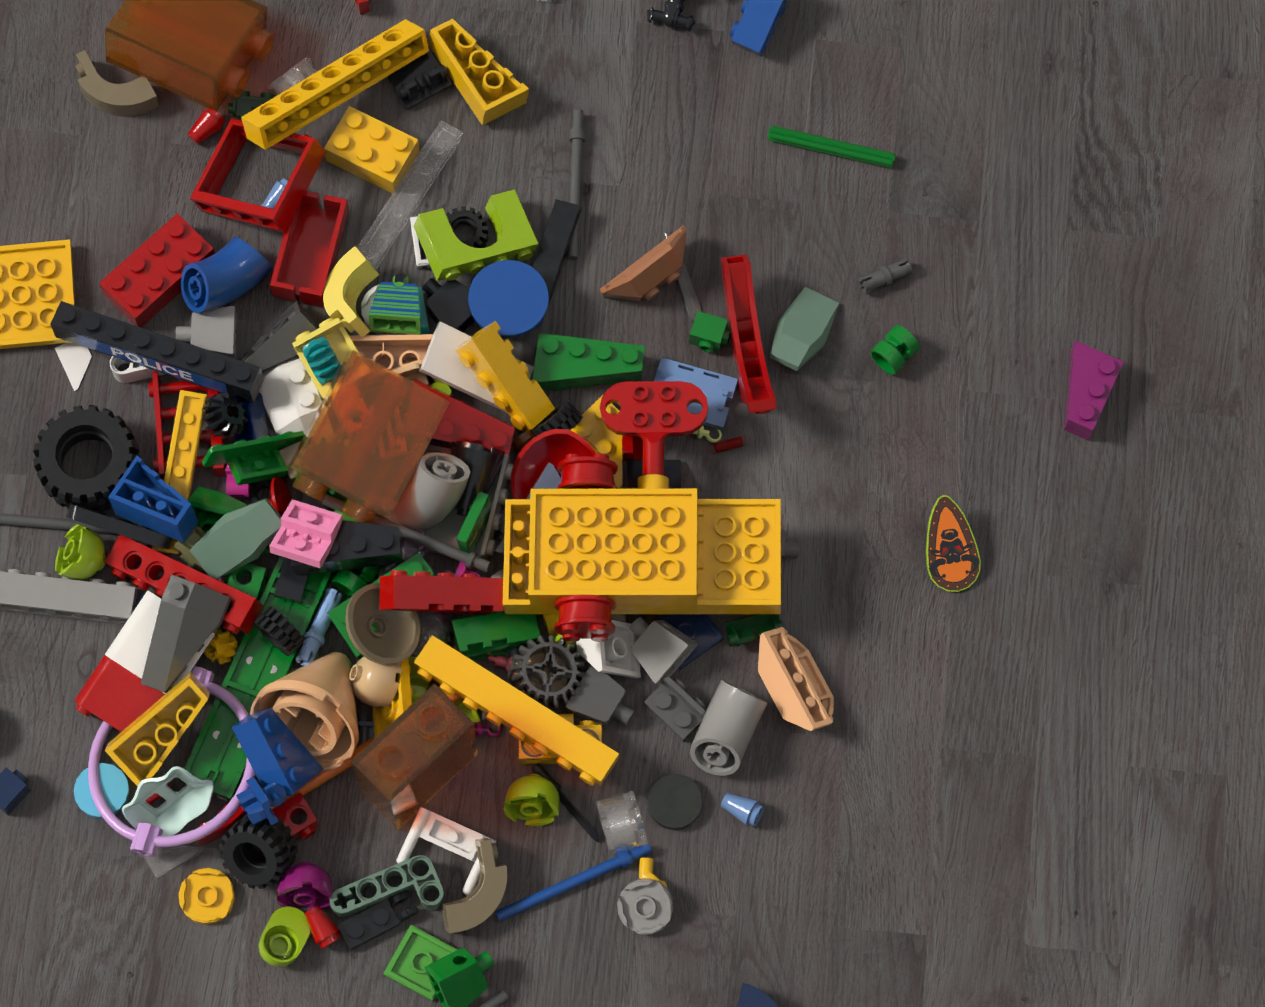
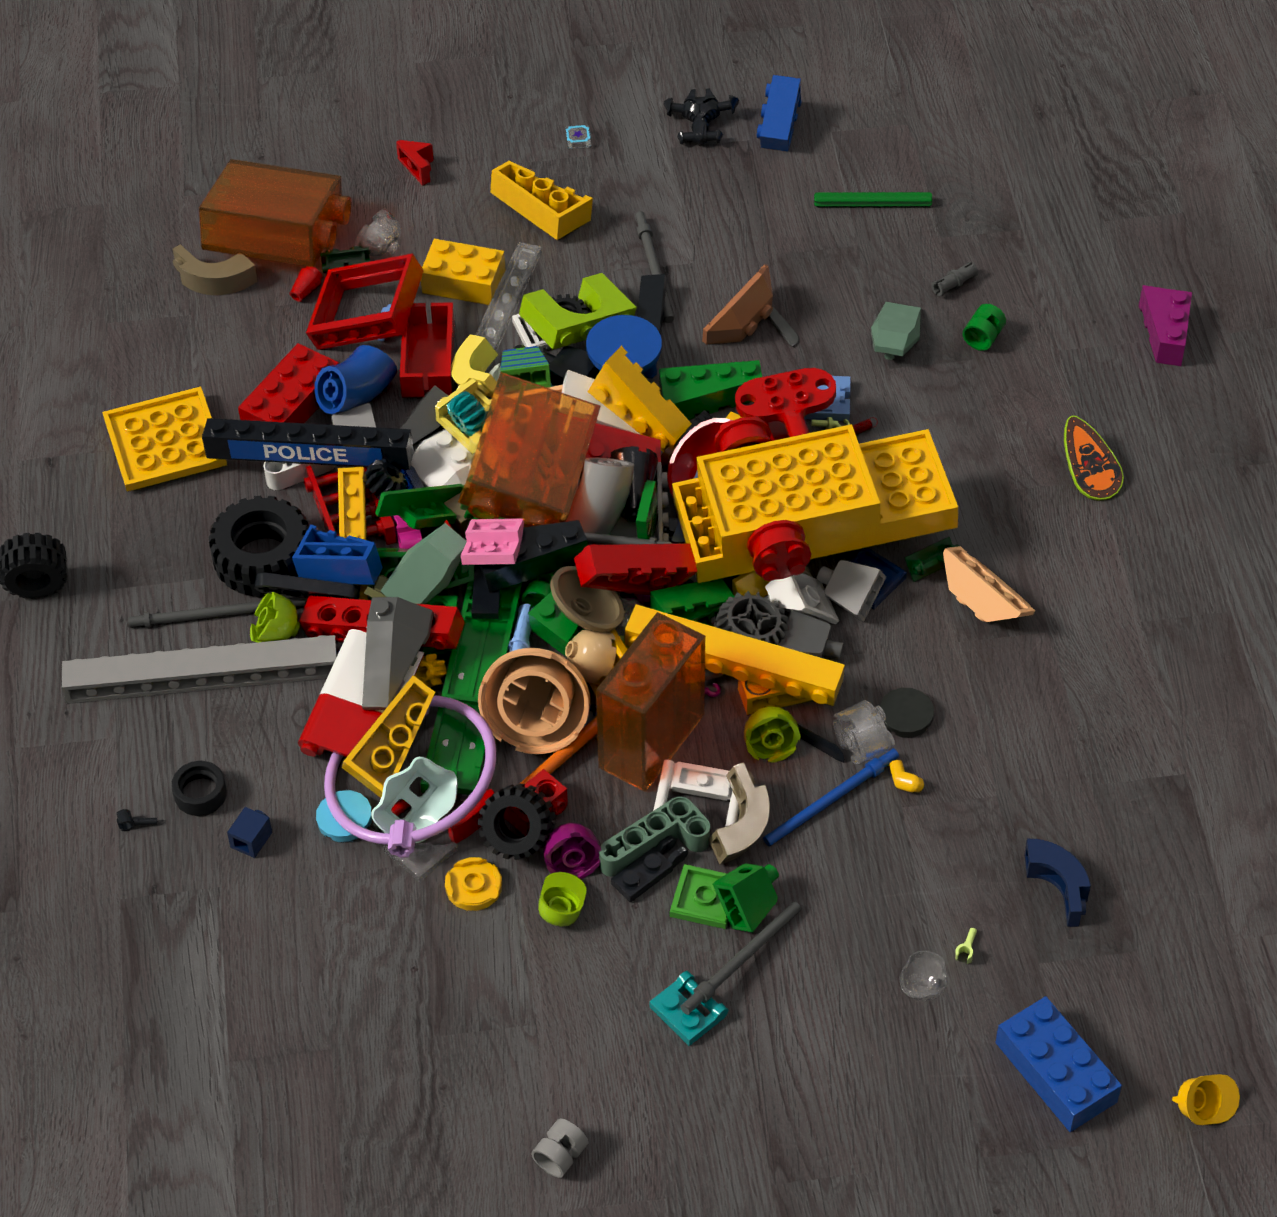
camera: 10 degrees left, 20 degrees down
(74, 361) = (227, 480): white sticker -> none
(258, 801) = (510, 770): blue hips -> none
(275, 751) = (511, 732): blue wedge -> none
(279, 631) = (486, 635): black tyre -> none
(322, 927) = (597, 882): red cone -> none
(335, 84) = (416, 221): yellow brick -> none
(420, 79) = (488, 216): black hinge -> none
(645, 906) = (908, 799): light grey tile -> none
(676, 708) = (882, 635): dark grey bracket -> none
(709, 332) = (812, 346): green brick -> none
(726, 729) = (937, 635): light grey brick -> none
(744, 809) = (975, 702): medium blue cone -> none
(745, 335) = (836, 321): red arch -> none

